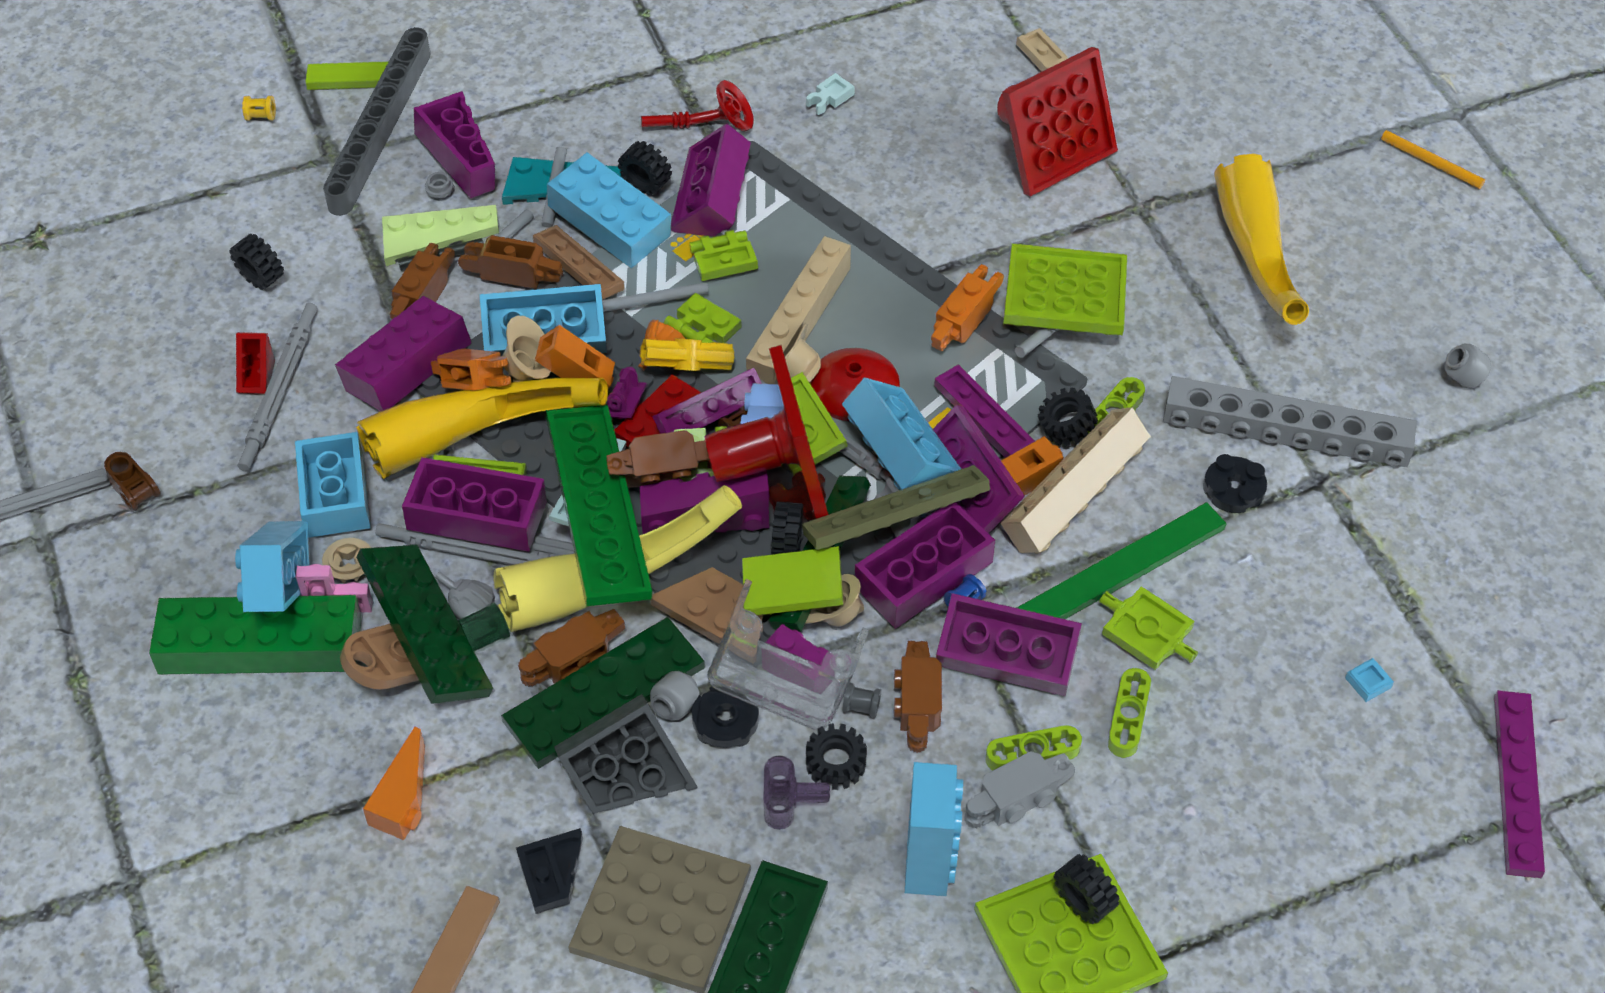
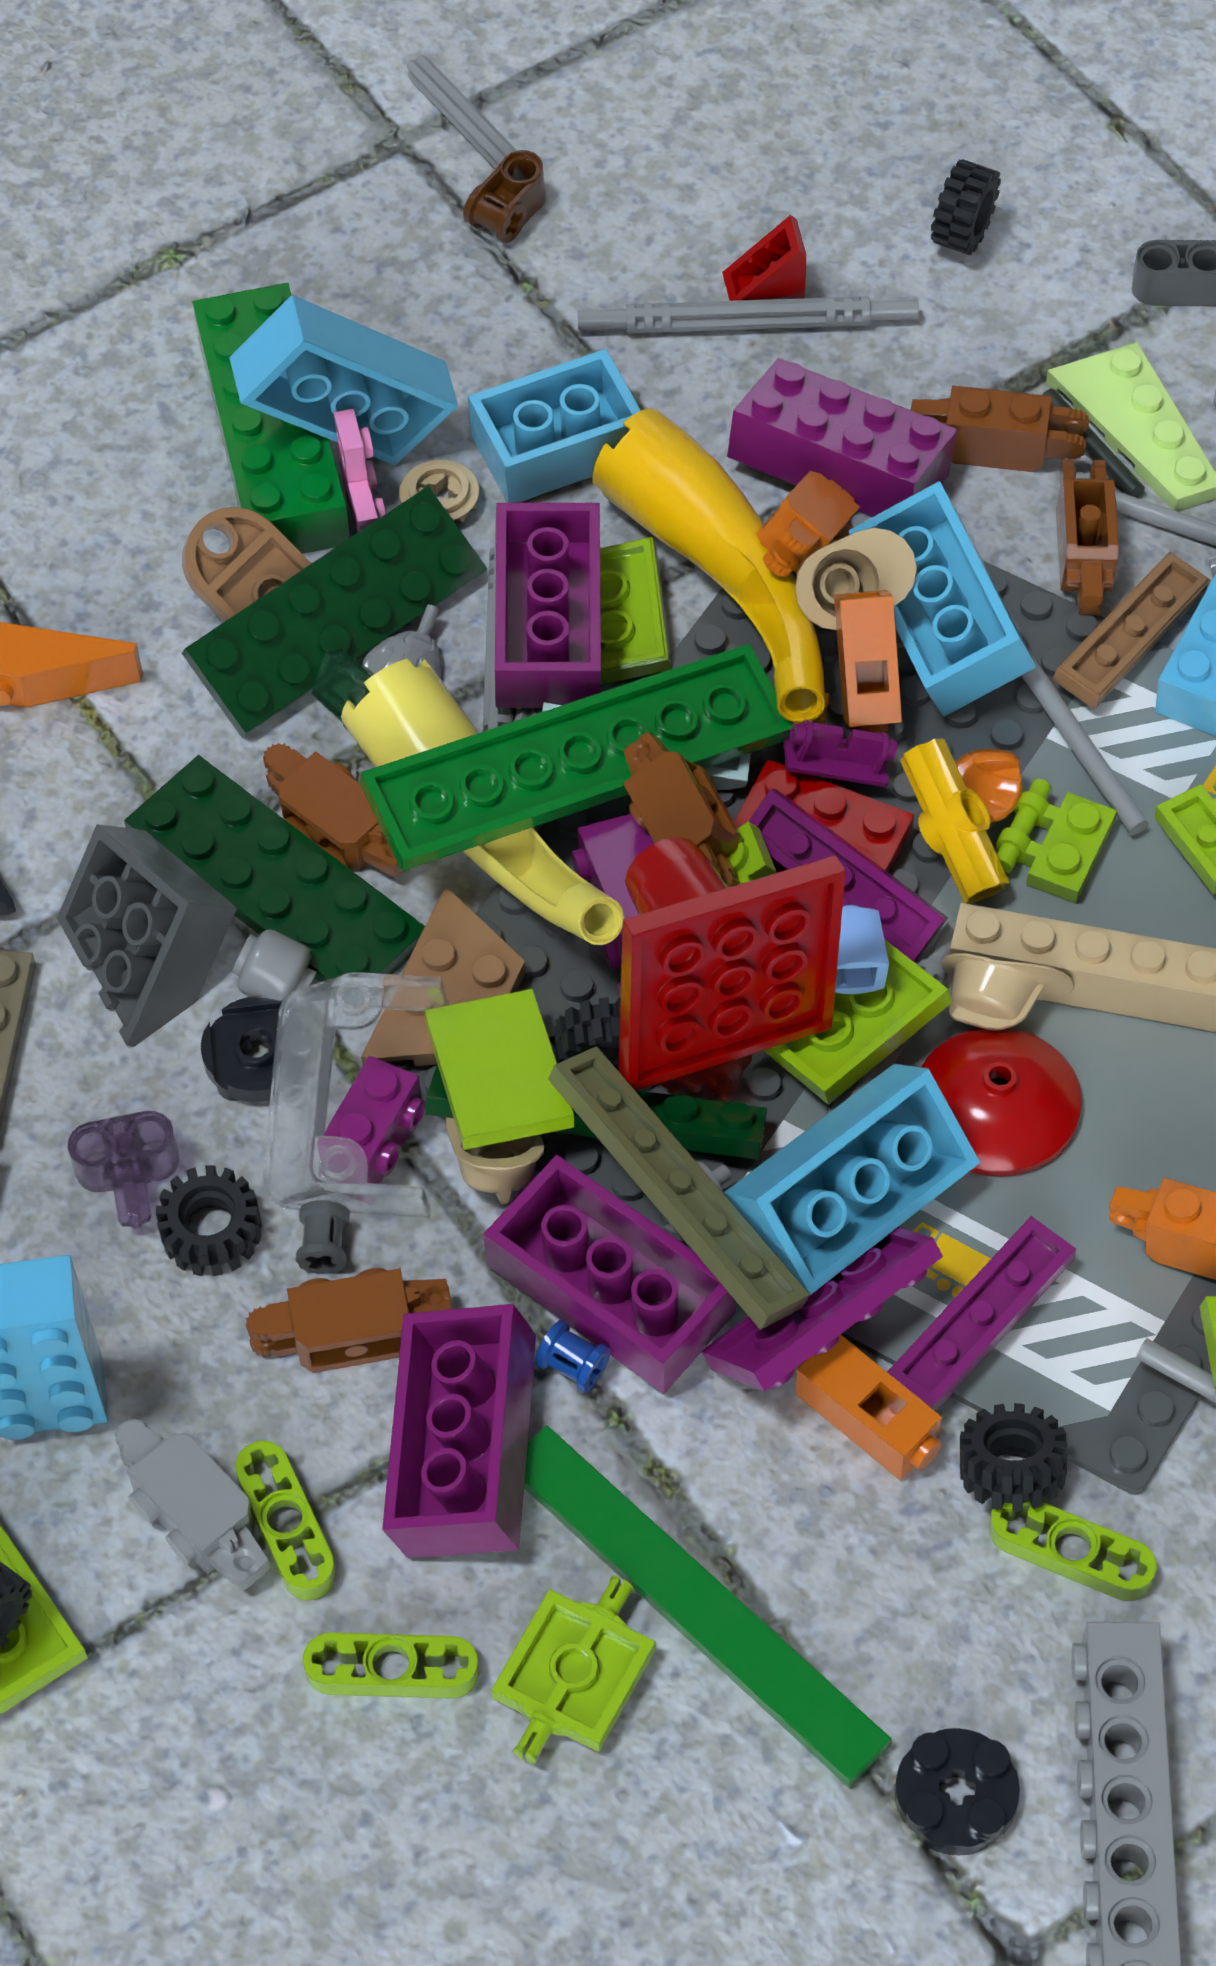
camera: 80 degrees right, 5 degrees up
(1075, 481) = (865, 1494): tan brick -> none

